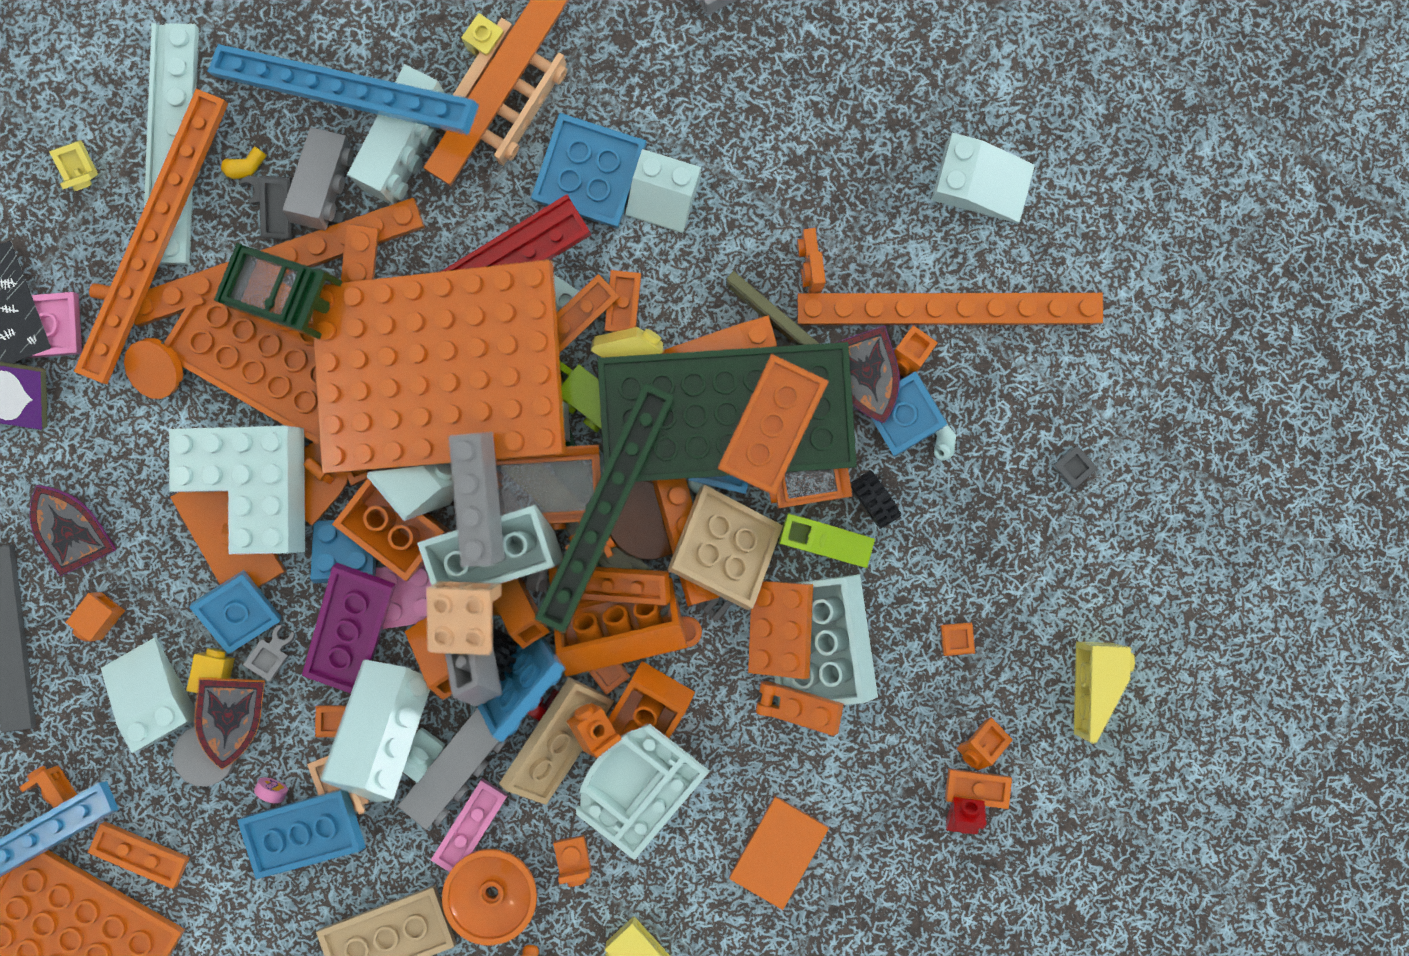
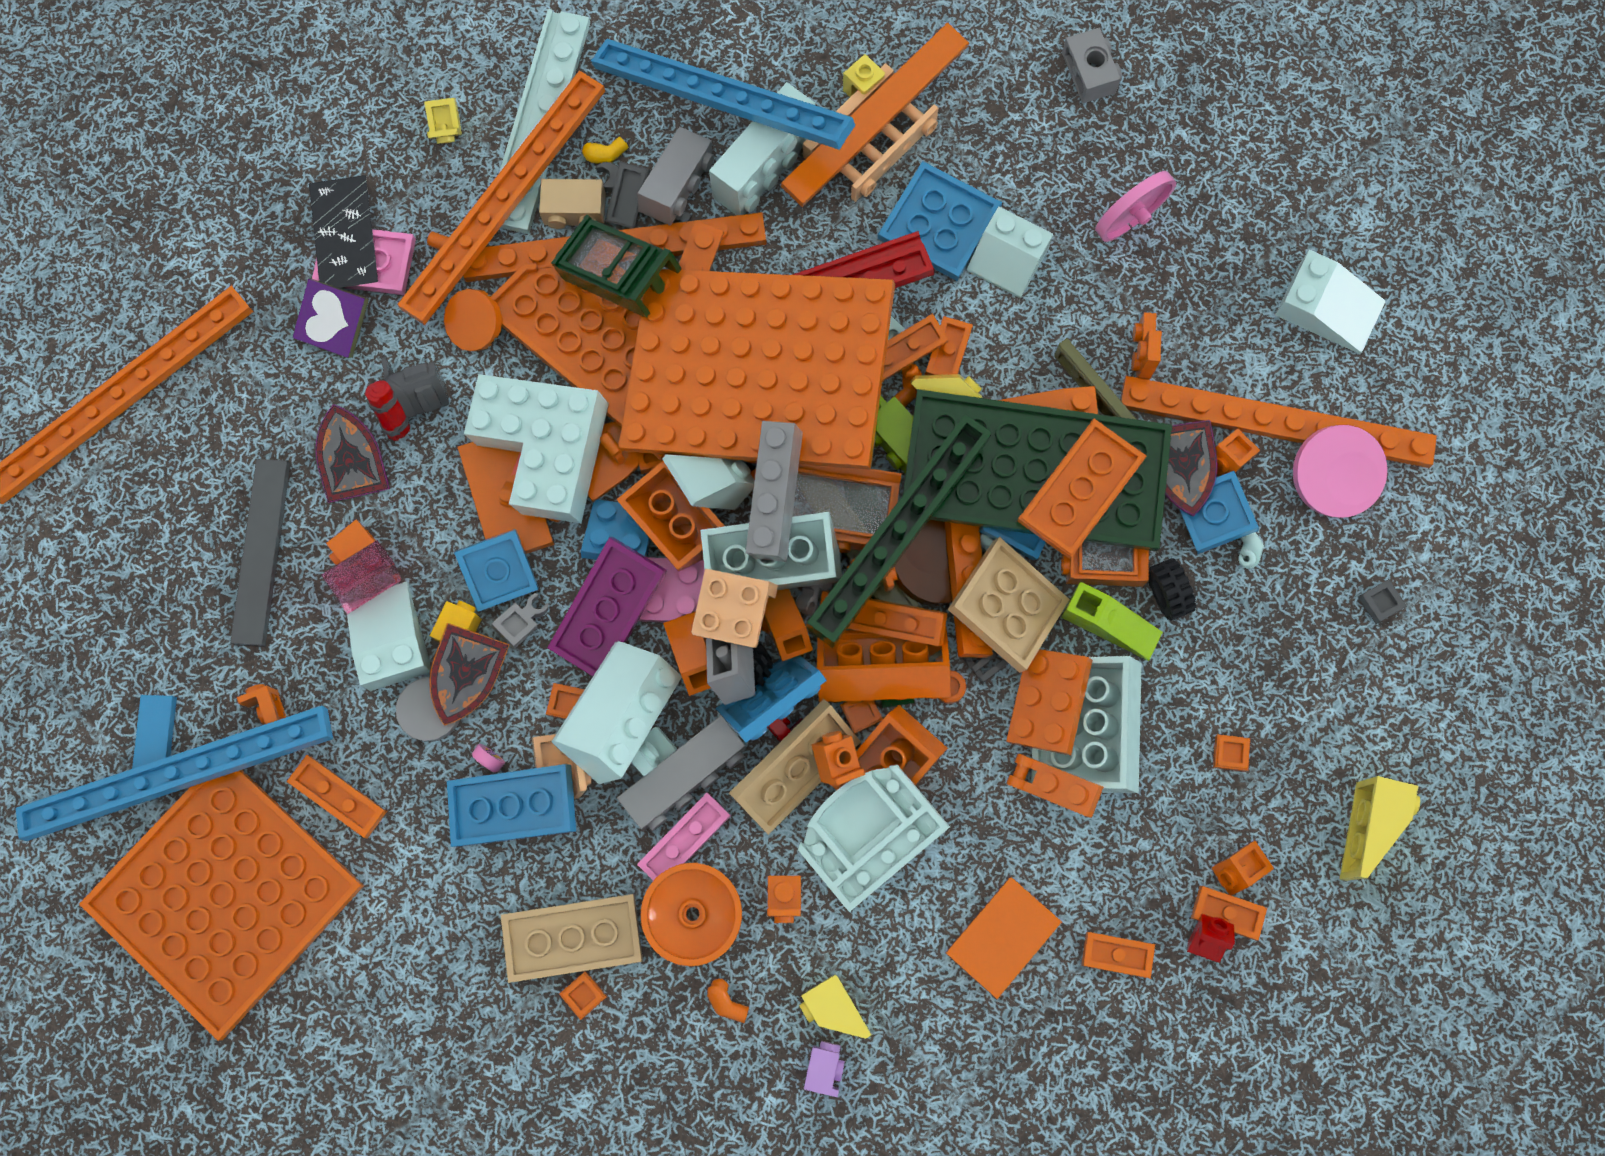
camera: 10 degrees right, 10 degrees down
(105, 460) = (404, 395): none -> dark grey piece
(108, 647) = (361, 577): none -> clear pink brick
(223, 226) = (570, 200): none -> tan brick
(589, 358) = (908, 392): none -> orange arm
(776, 122) = (1136, 206): none -> bright pink piece
(884, 847) = (1118, 955): none -> orange plate
(1016, 348) = (1340, 471): none -> bright pink piece

